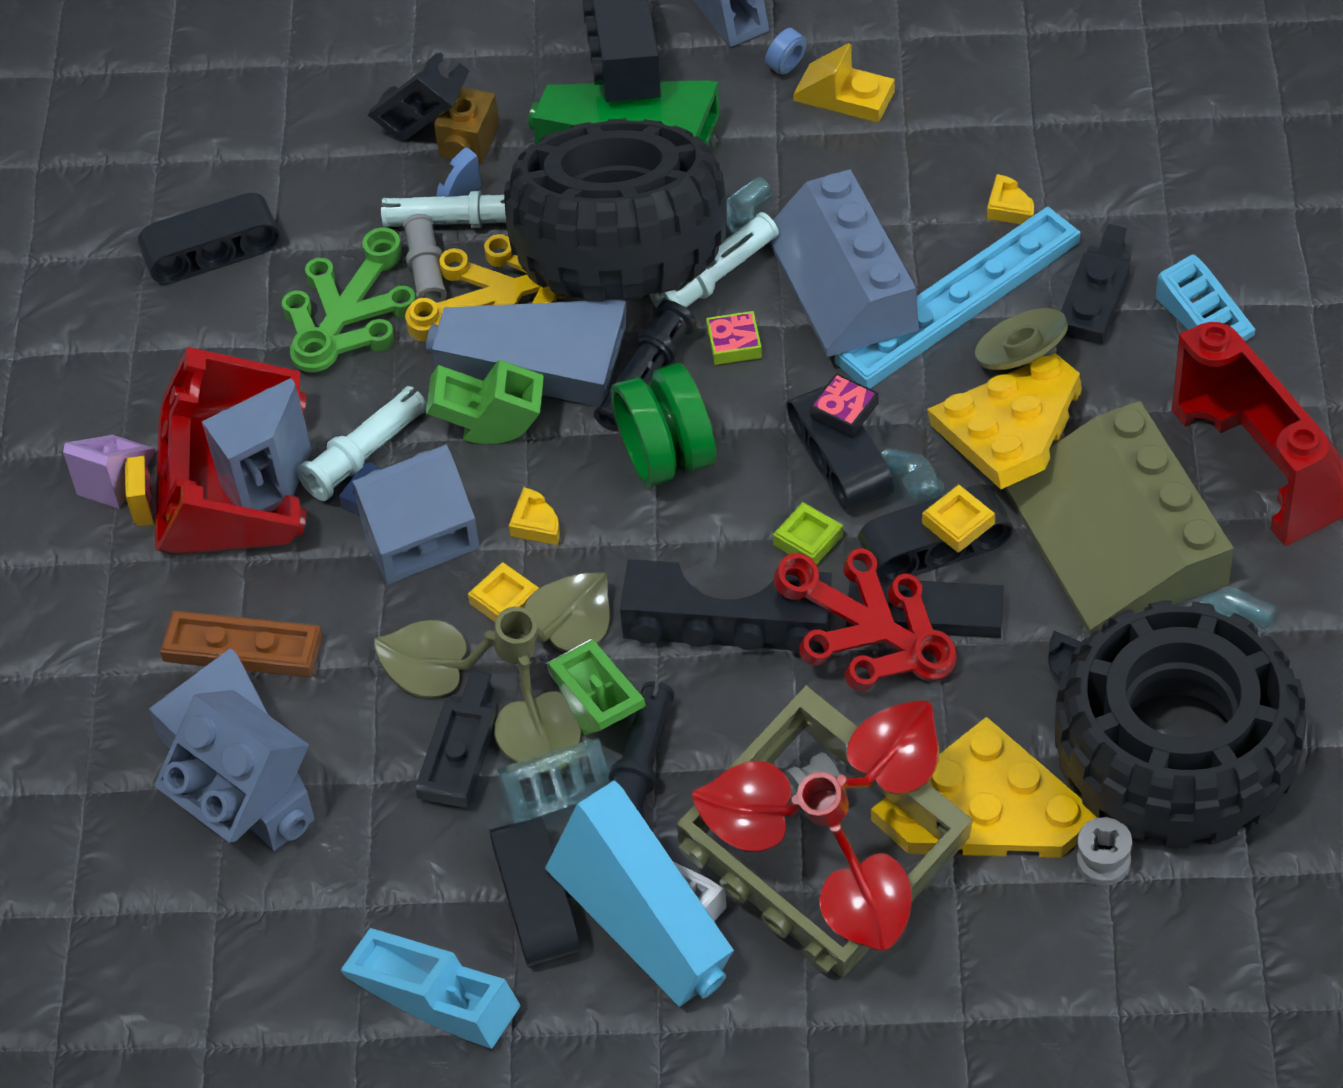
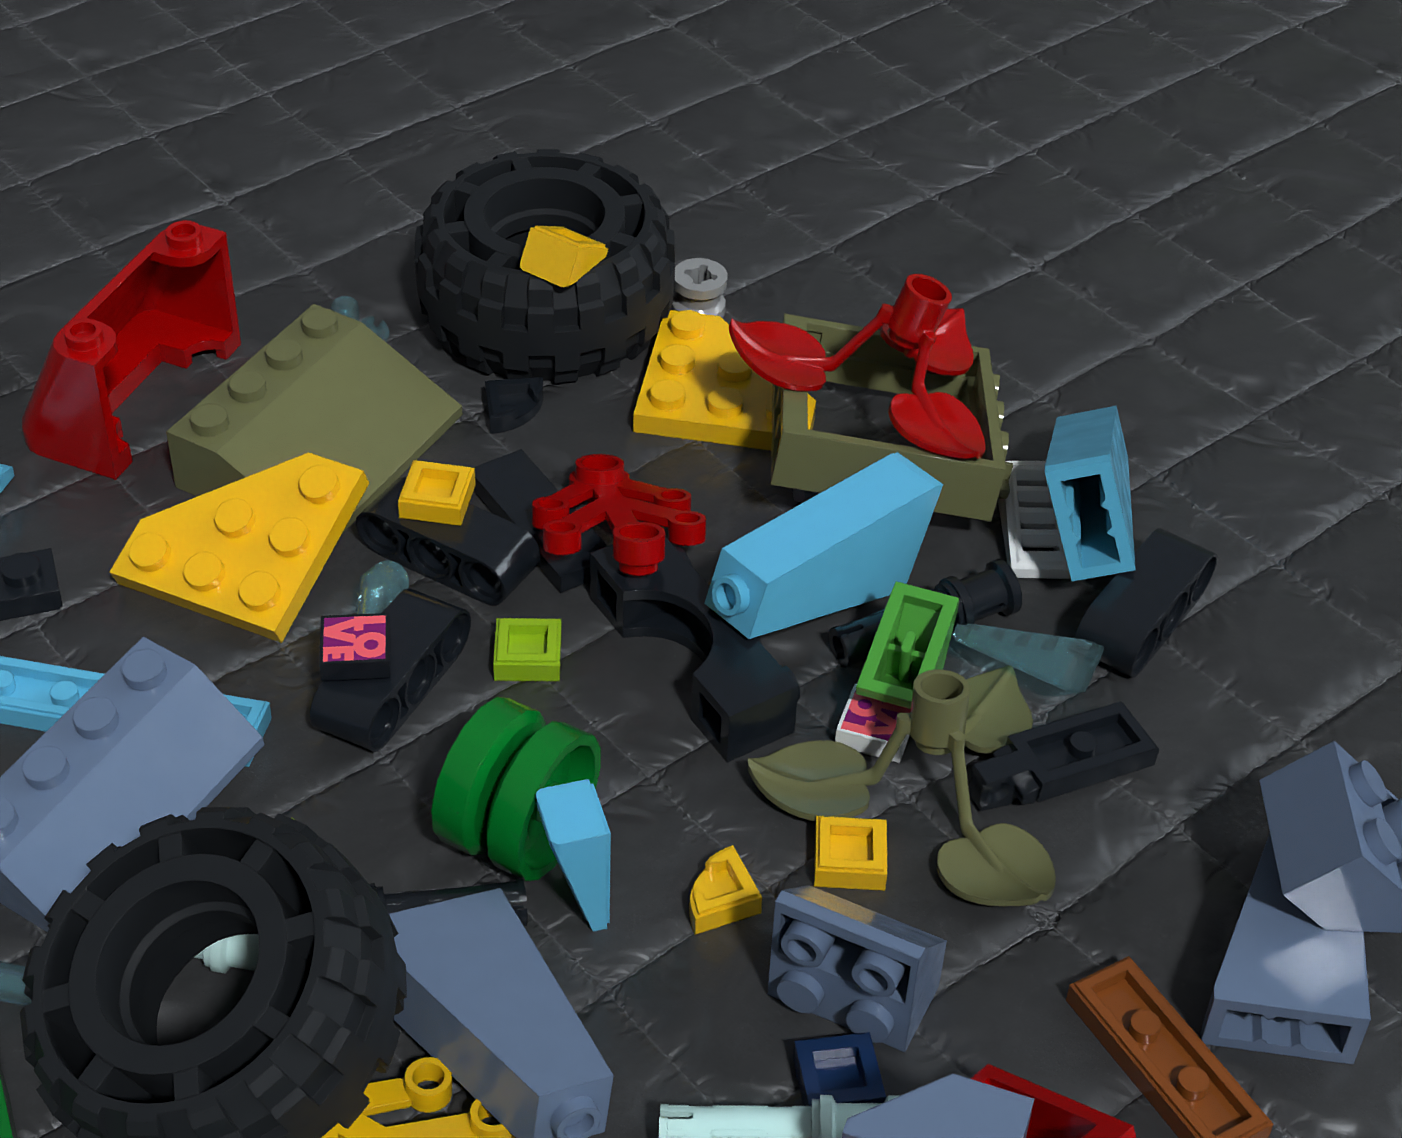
camera: 135 degrees left, 10 degrees down
(433, 986) = (1318, 614): medium azure slope -> none
(489, 408) = (616, 1002): bright green brick -> none
(590, 417) = (580, 845): none -> medium azure slope
(705, 679) = (827, 551): none -> medium azure slope
(1021, 339) = (99, 568): olive dish -> none
(1105, 659) = (560, 254): none -> yellow slope

